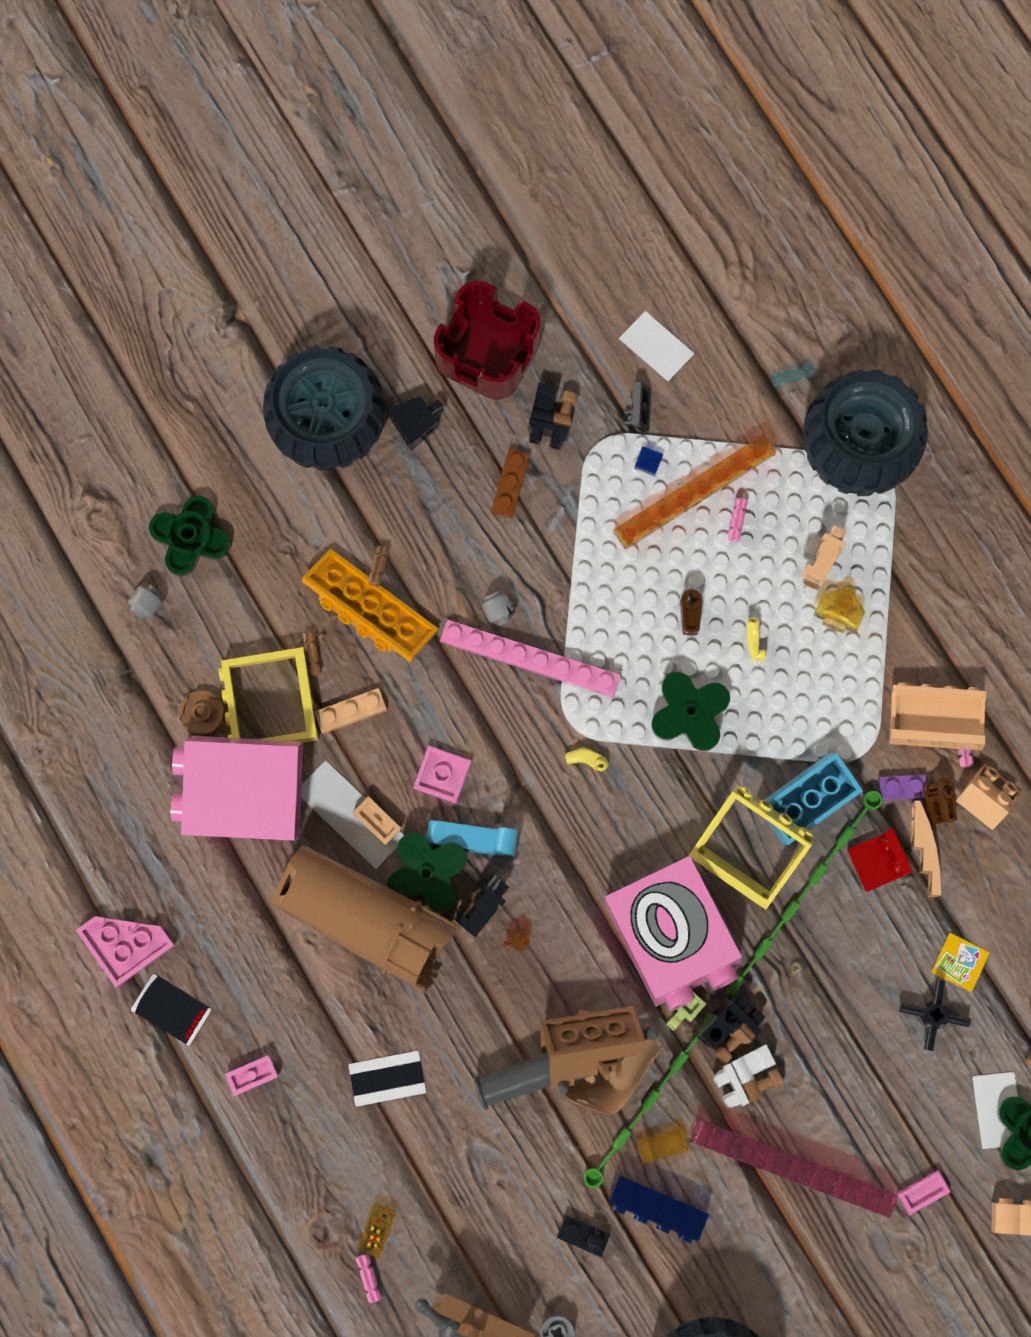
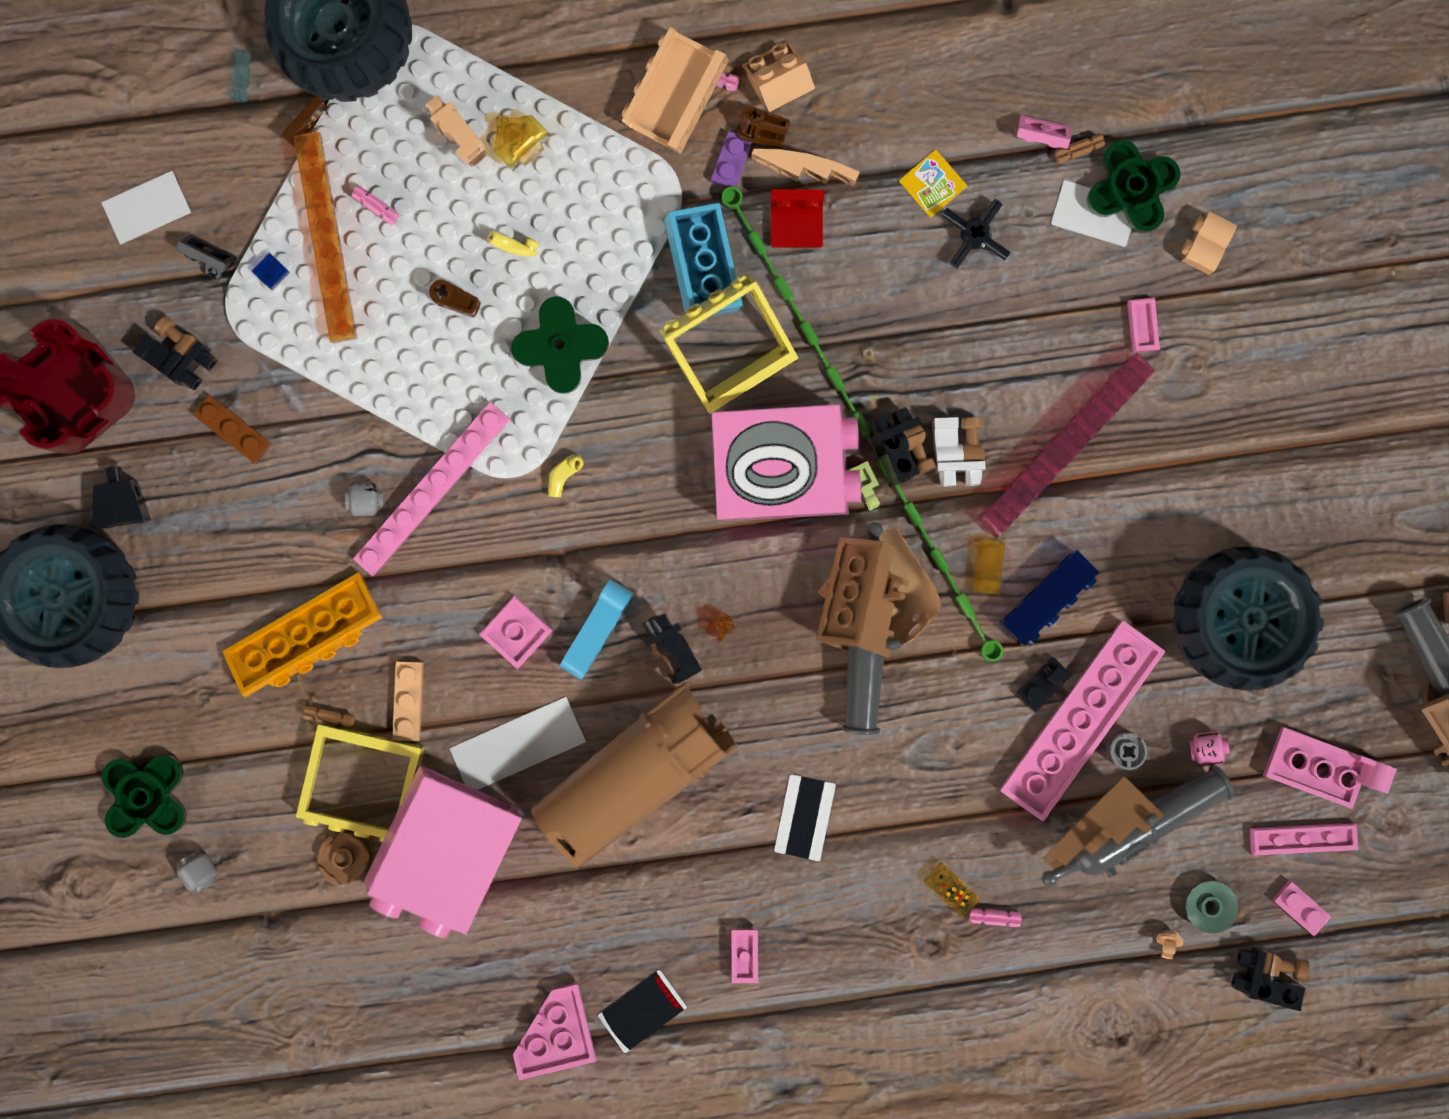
camera: 65 degrees left, 10 degrees up
(376, 821) = (536, 721): light nougat plate -> none
(378, 566) = (263, 608): medium nougat axle -> none
(442, 862) = (610, 671): dark green plant -> none
(567, 1282) = (1082, 720): none -> bright pink plate
(780, 438) = (305, 120): none -> reddish brown tile

